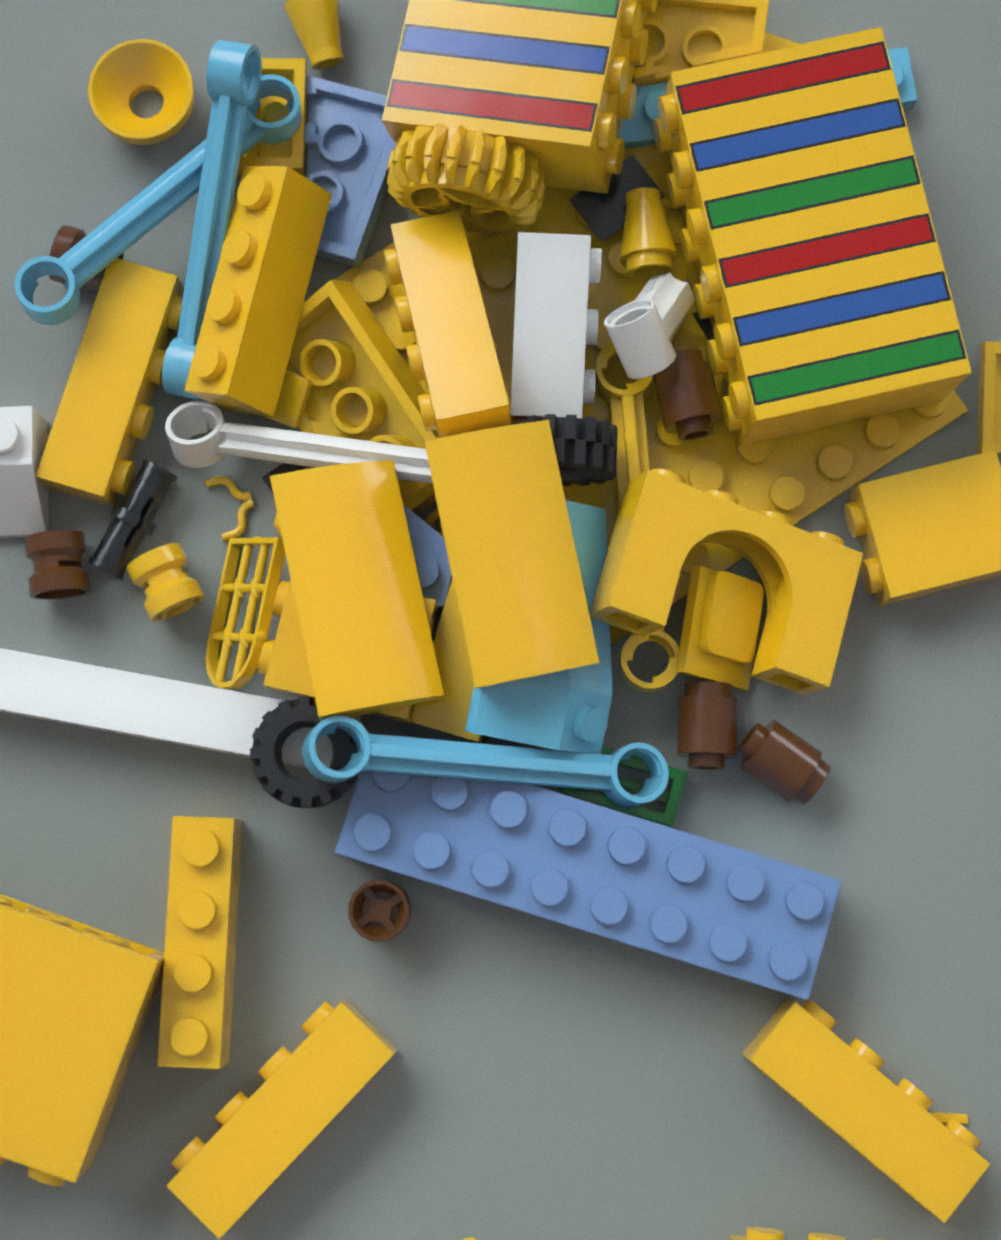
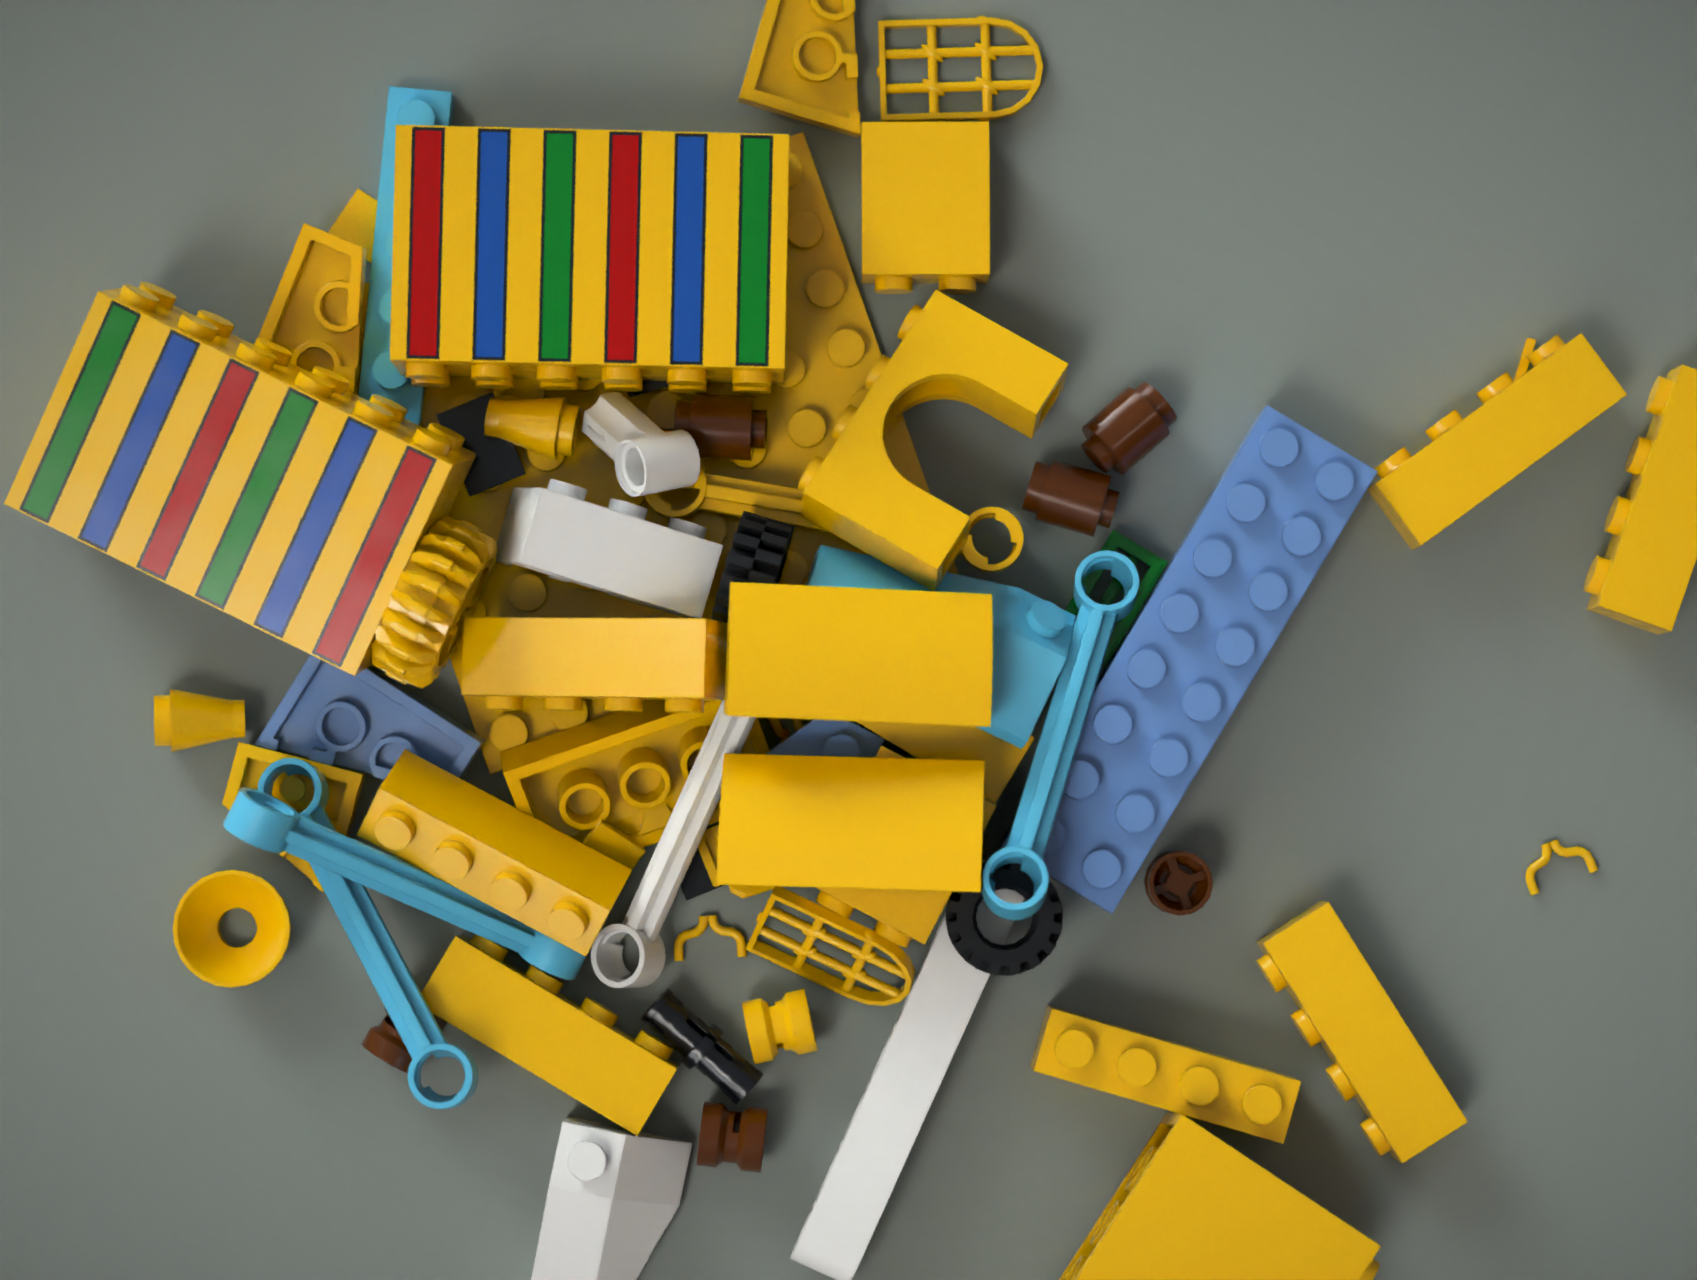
camera: 75 degrees left, 5 degrees up
(720, 627) = (974, 457): yellow piece -> none

